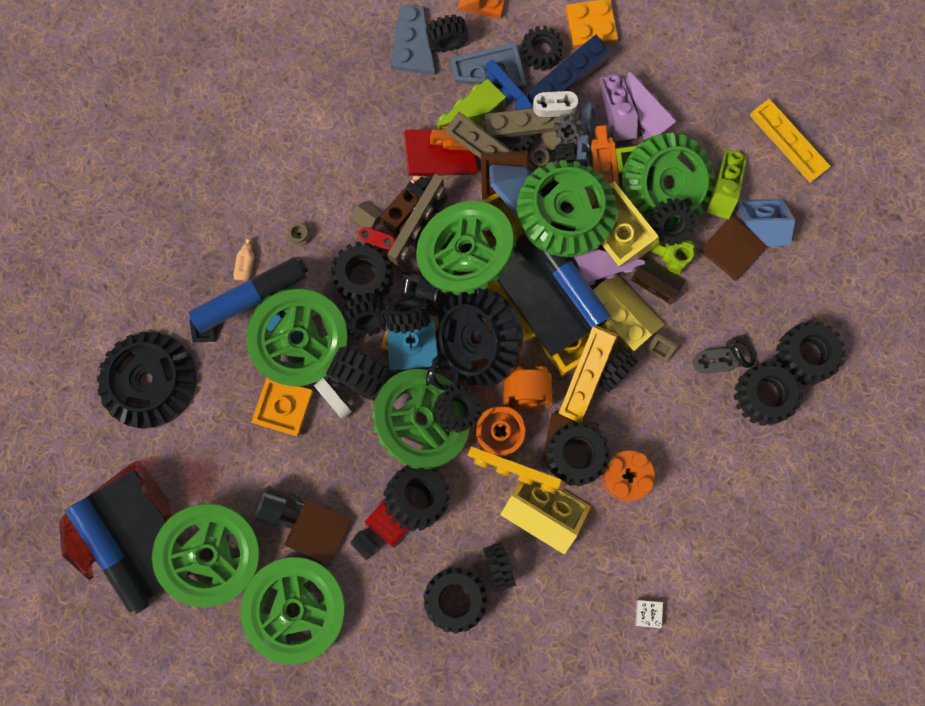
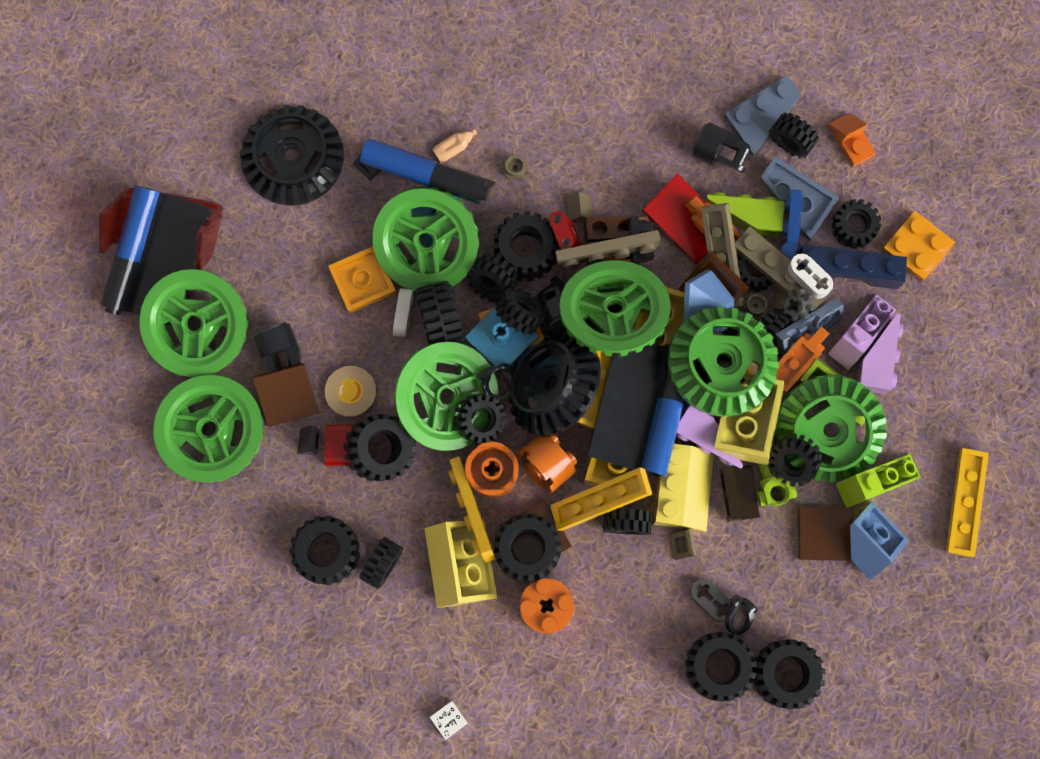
camera: 45 degrees right, 0 degrees up
(355, 484) = (350, 391): none -> tan tile
(402, 88) = (711, 143): none -> black piece

